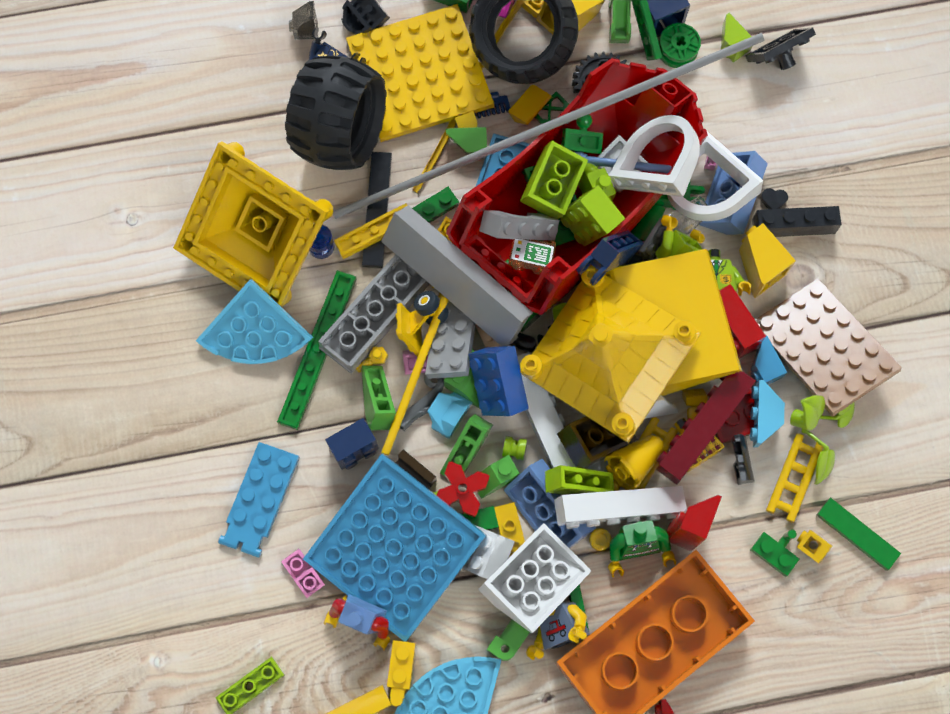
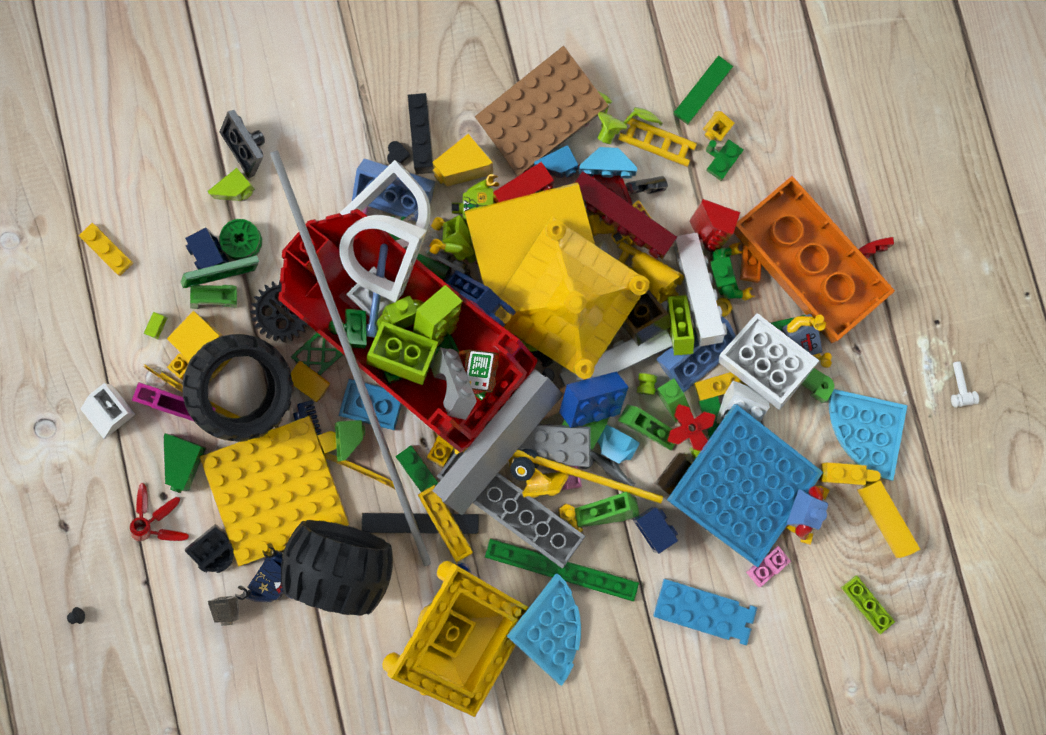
camera: 95 degrees left, 10 degrees up
(645, 573) = (750, 267): none -> orange plate

